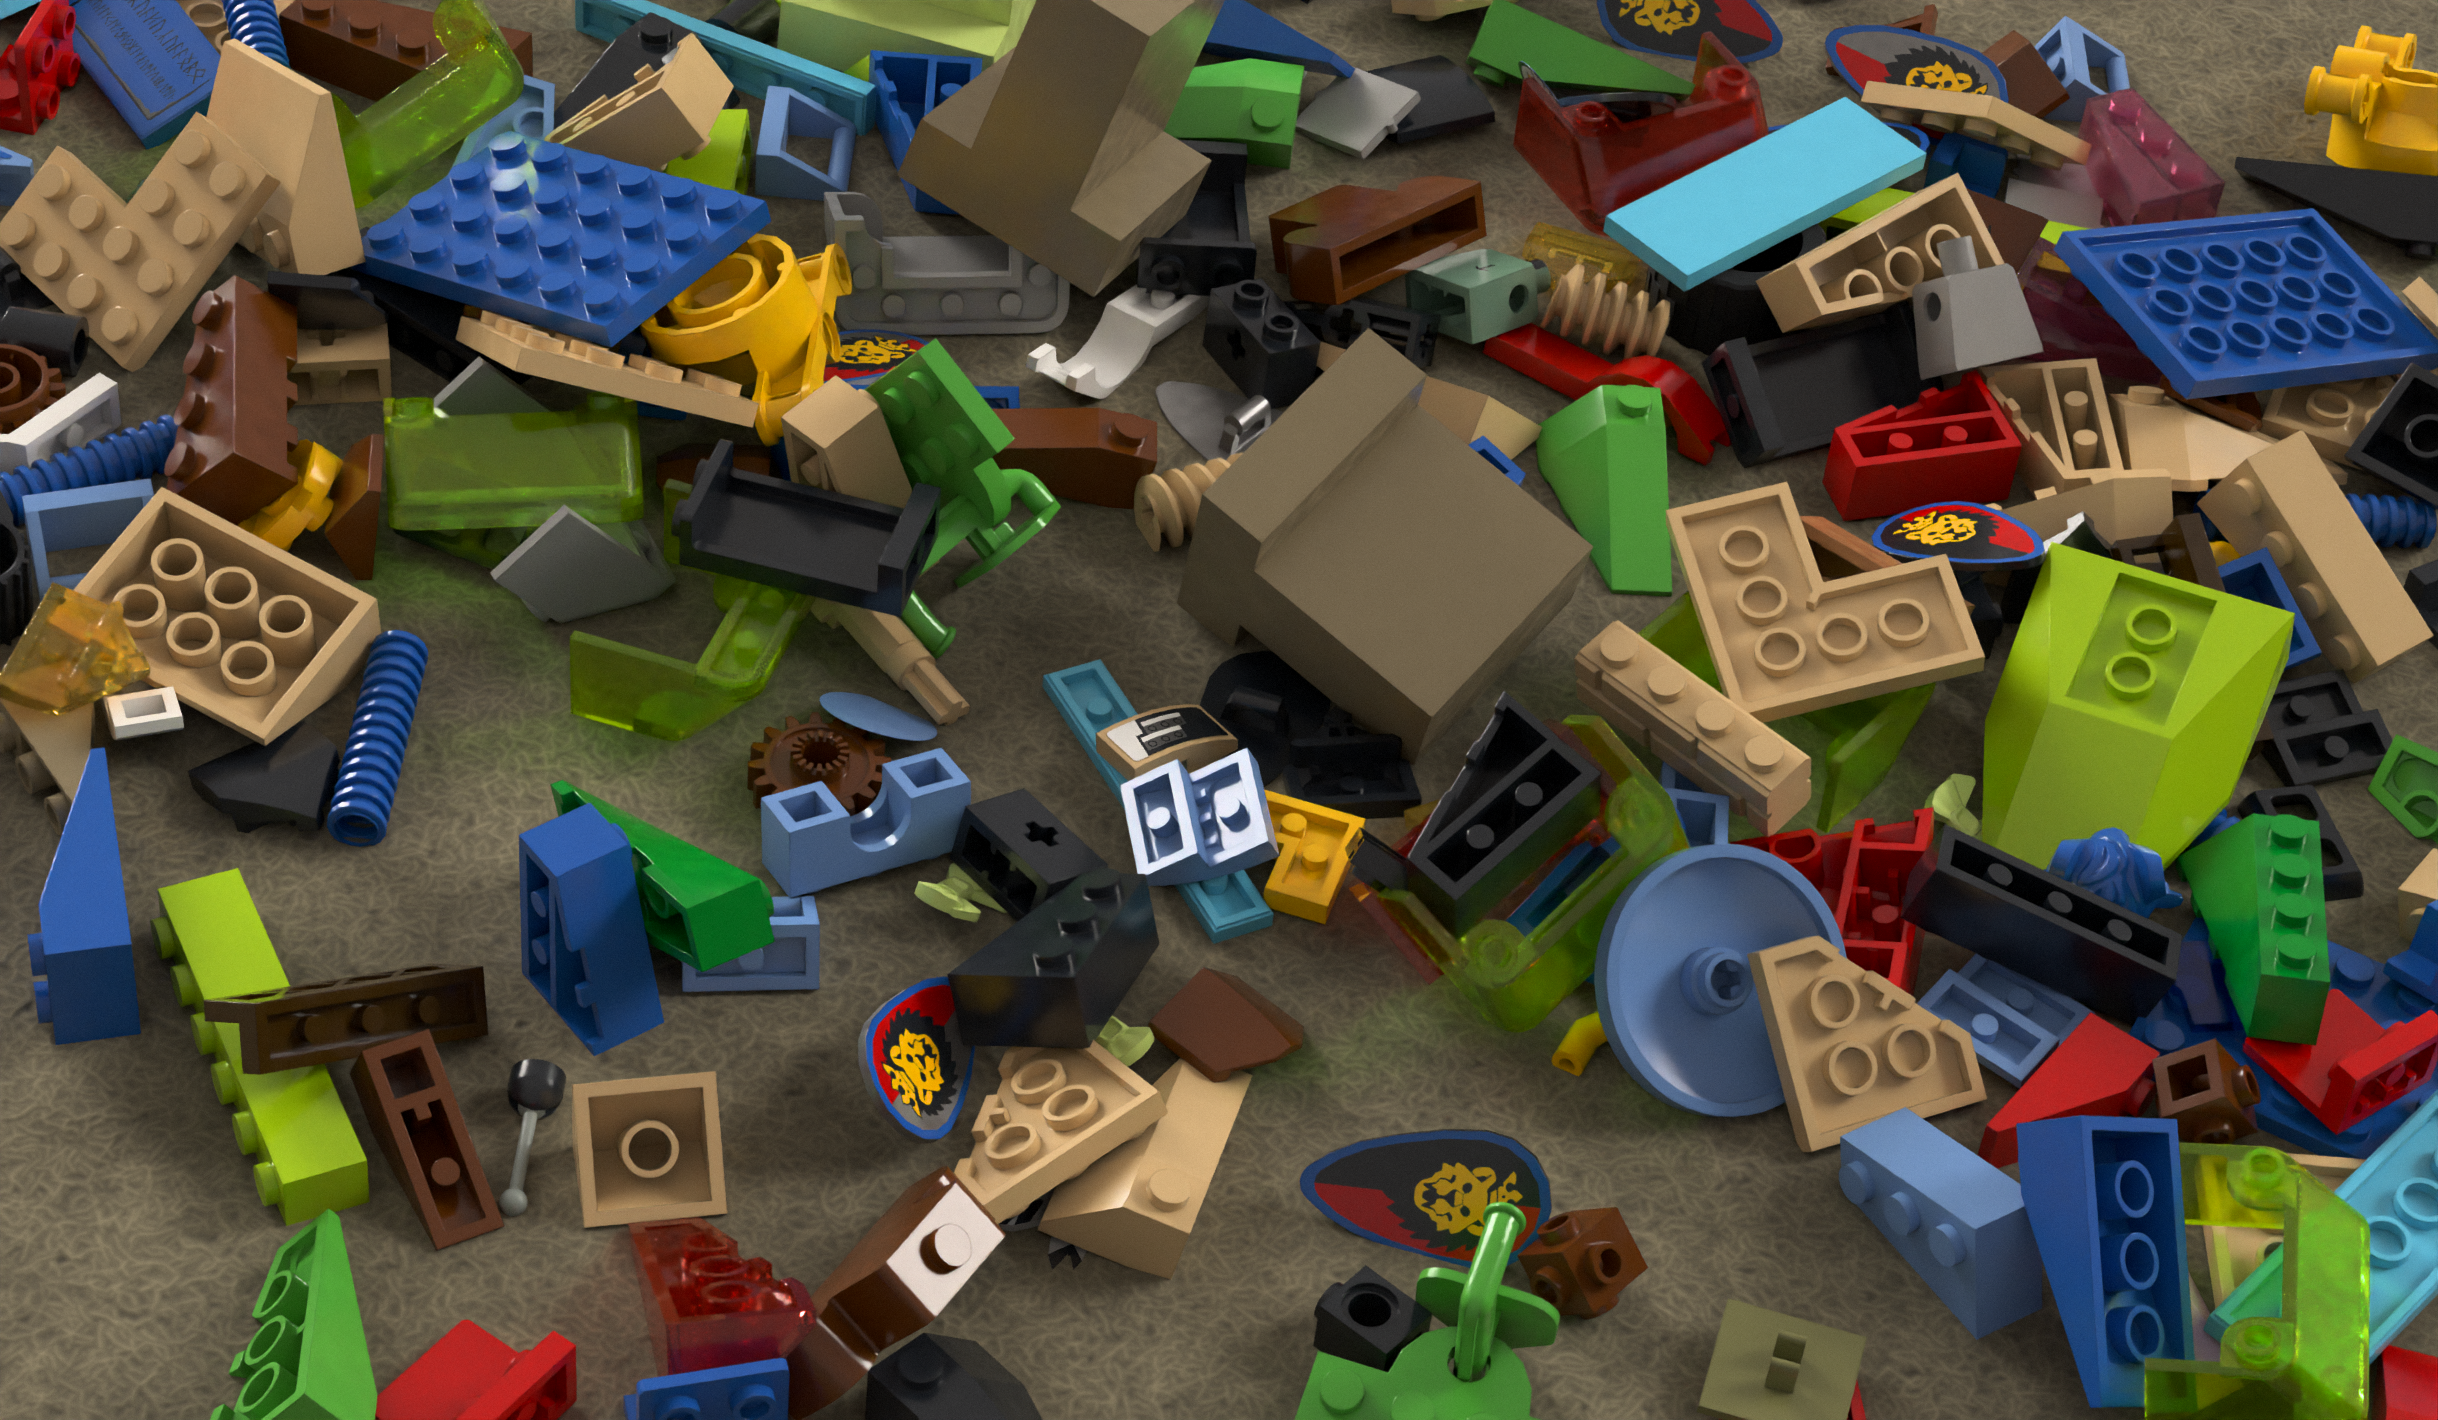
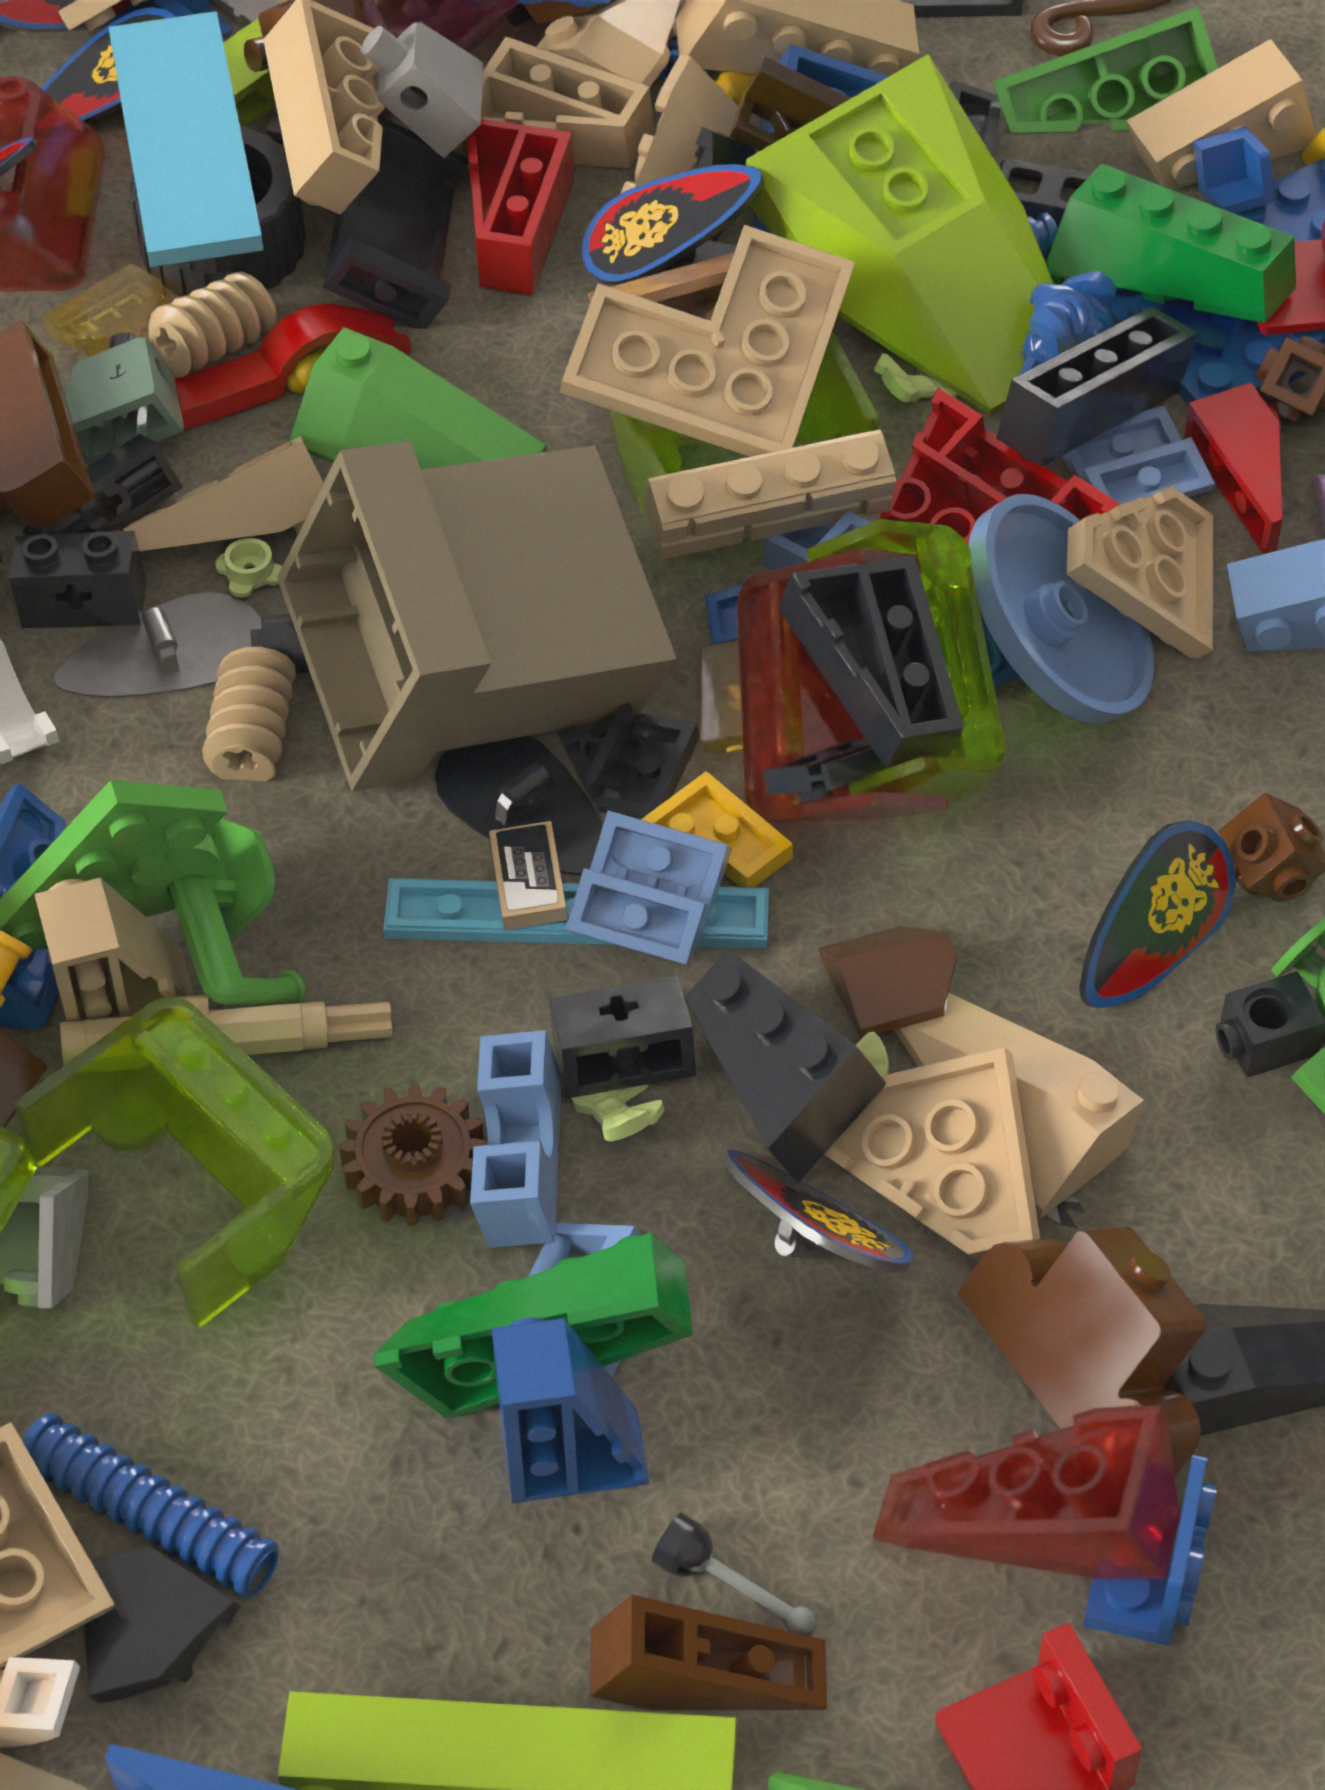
camera: 55 degrees left, 10 degrees up
(352, 1014) = (564, 1646): dark brown fence -> none
(648, 1149) = (820, 1483): tan slope -> none
(805, 535) = (185, 1015): black panel -> none
(877, 716) = (368, 1077): medium blue sticker -> none
(1081, 451) = (139, 744): reddish brown wedge -> none
(1579, 1044) = (1016, 720): yellow arm -> none

